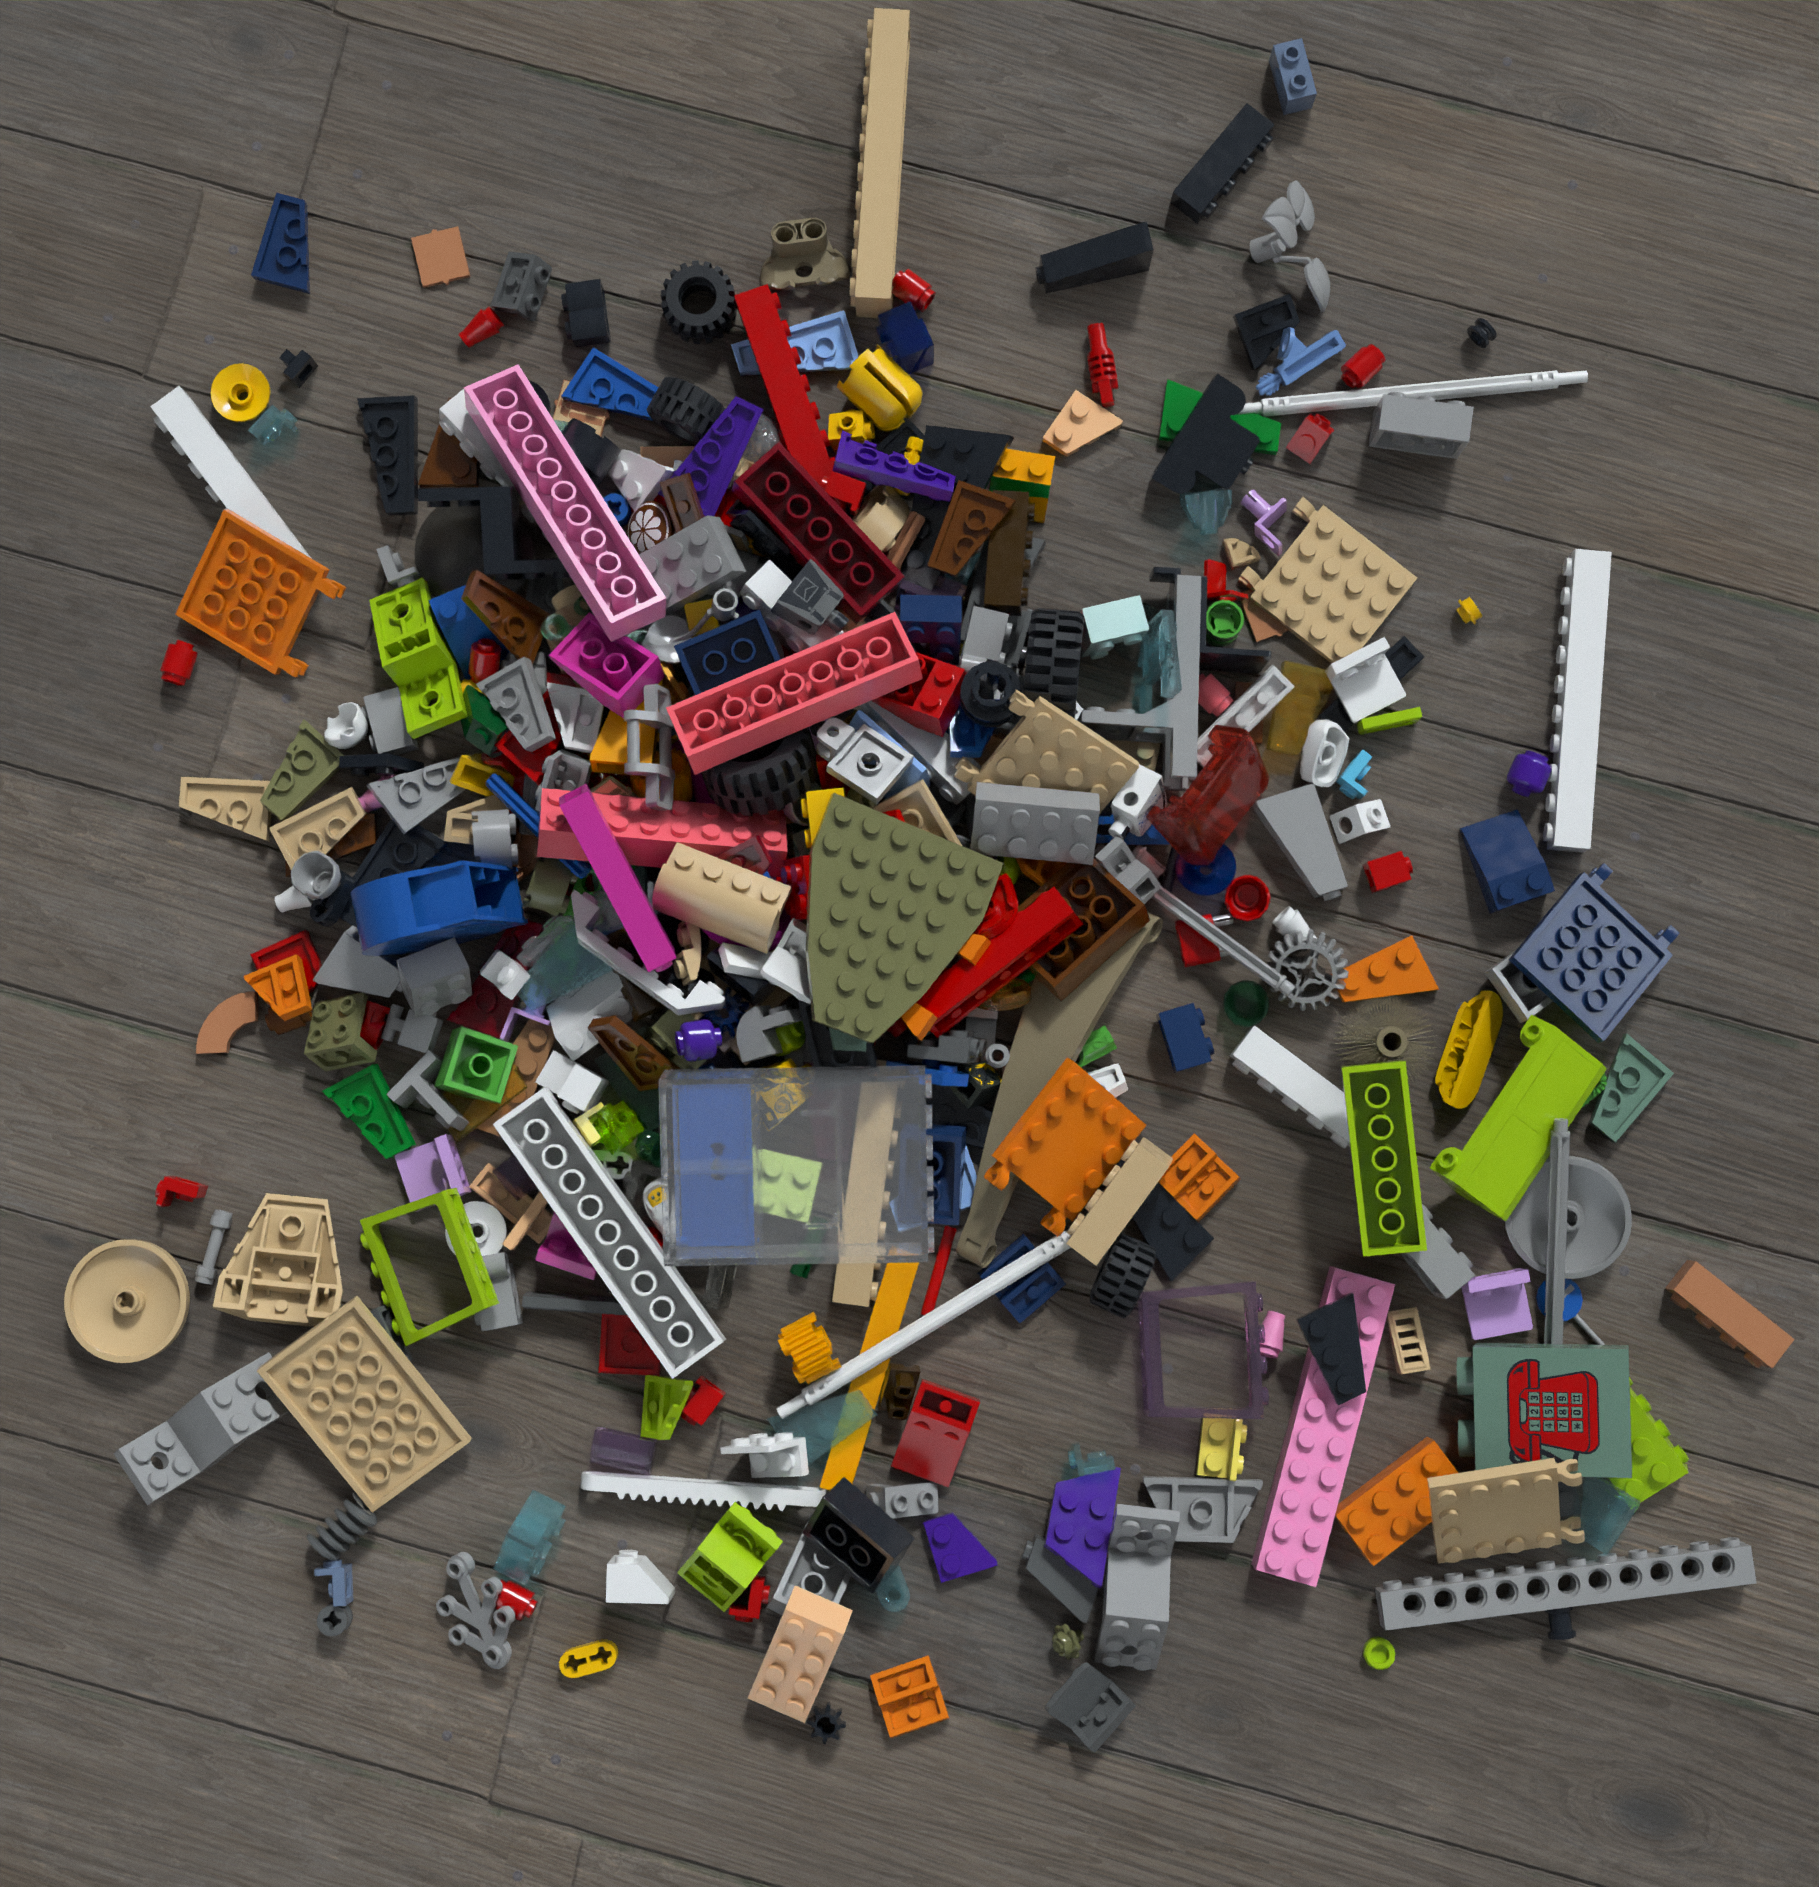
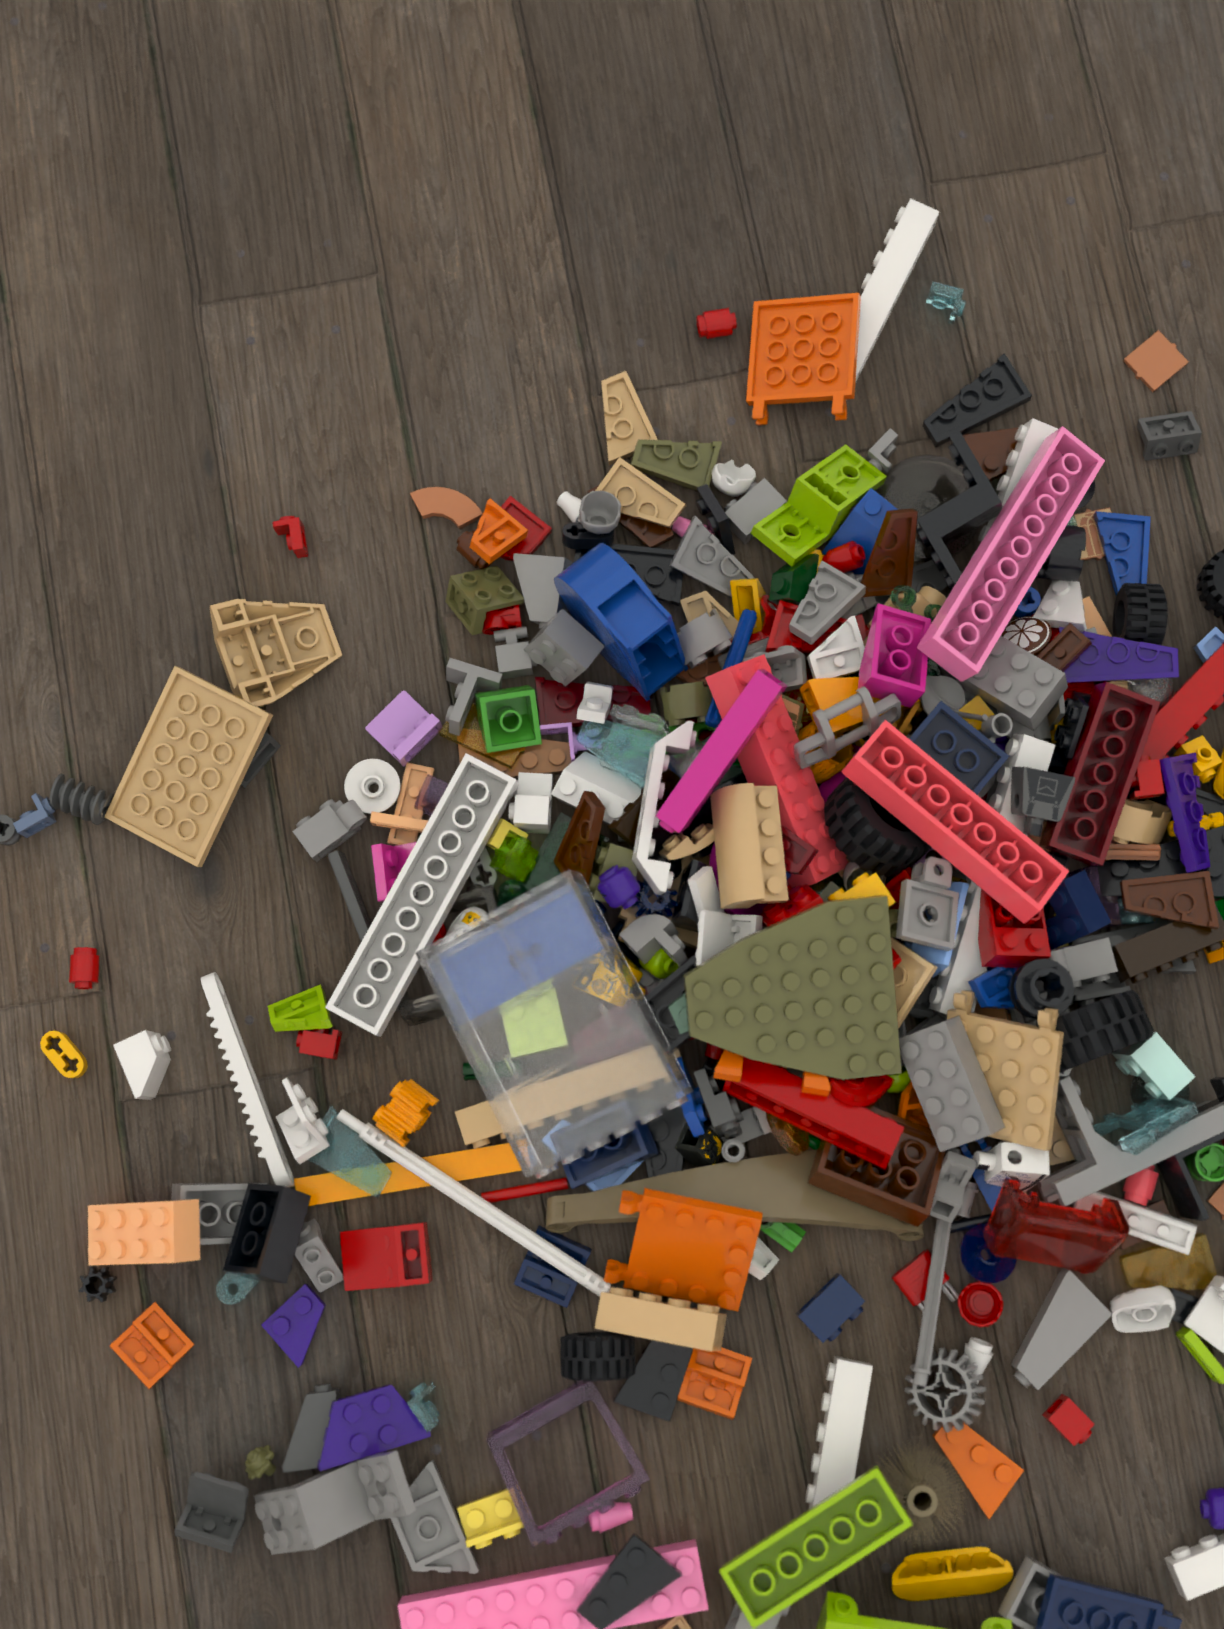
camera: 60 degrees right, 5 degrees down
(126, 1301) = (185, 538): tan dish -> none
(201, 1432) = (104, 647): light grey bracket -> none
(206, 1272) = (237, 589): light grey bar -> none
(231, 383) = (963, 252): yellow dish -> none
(285, 246) = (1096, 236): dark blue wing -> none
(298, 367) = (1004, 296): black tile -> none
(366, 1103) = (434, 646): green wing -> none
(466, 1251) = (351, 785): lime windscreen -> none
(481, 327) = (1117, 421): red cone -> none
(494, 1647) = (38, 970): light grey plant -> none
(528, 1538) = (140, 954): clear light blue brick -> none
(586, 313) = (1175, 498): black brick -> none
(623, 1450) = (249, 997): clear purple brick -> none
(625, 1349) = (332, 955): red tile -> none
(730, 1556) = (200, 1131): lime bracket -> none
(758, 1595) = (179, 1172): red bracket -> none
(898, 1390) = (406, 1206): dark brown hips -> none
(1246, 1003) = (888, 1348): clear green hair -> none
(1355, 770) = (1144, 1348): medium azure bracket -> none
(1365, 819) = (1104, 1376): white bracket -> none
(1506, 861) = (1134, 1526): dark blue slope -> none

